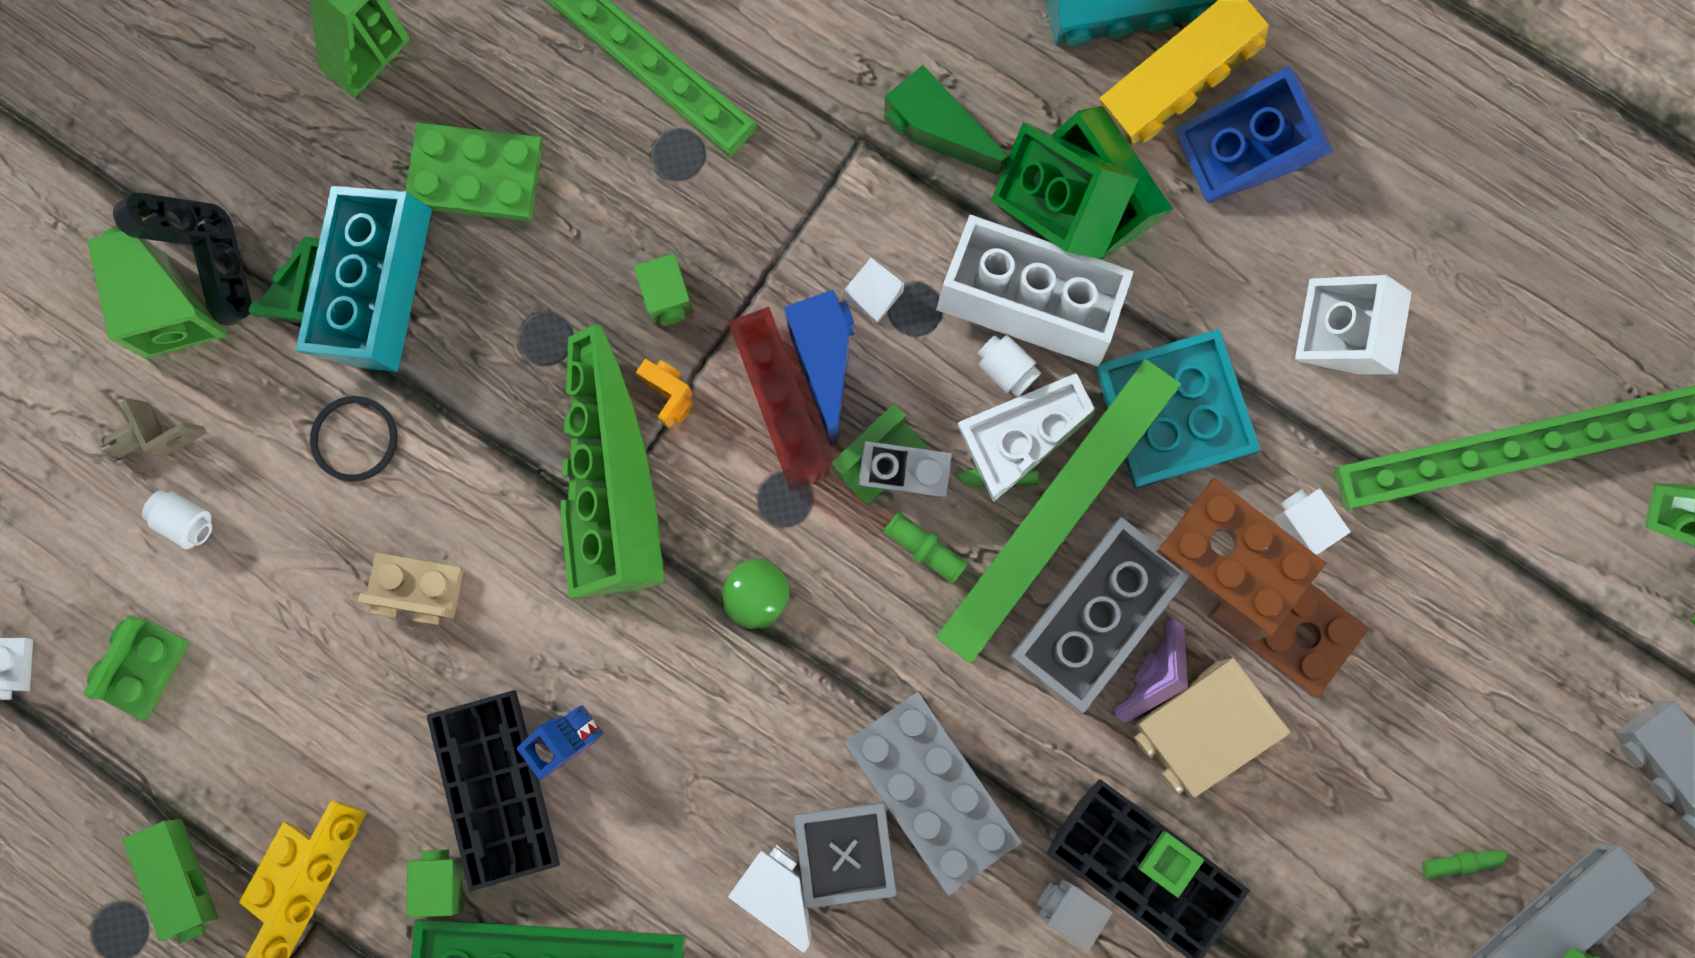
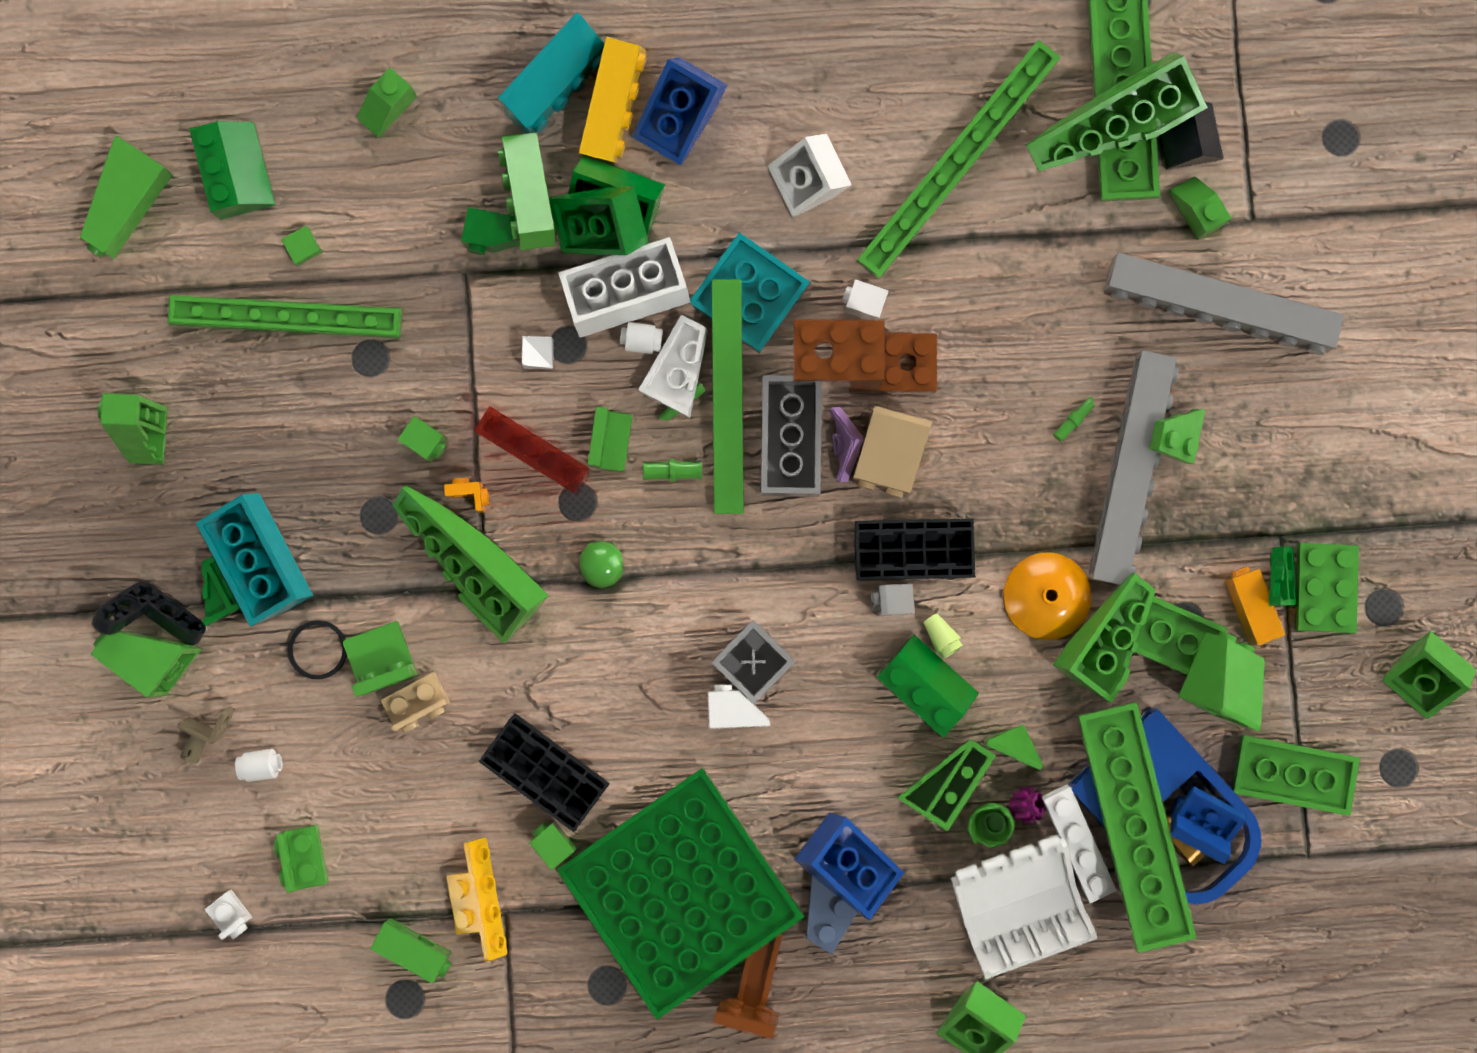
camera: 40 degrees left, 5 degrees up
(412, 503) = (379, 658): none -> bright green bracket
(475, 171) = (265, 453): bright green plate -> none
(565, 739) = (561, 717): blue leg -> none
(821, 340) = (532, 403): blue slope -> none
(905, 469) = (629, 437): light grey slope -> none
(933, 793) = (773, 595): light grey brick -> none
(1006, 98) = (528, 191): none -> brick
(1170, 864) = (922, 536): bright green plate -> none

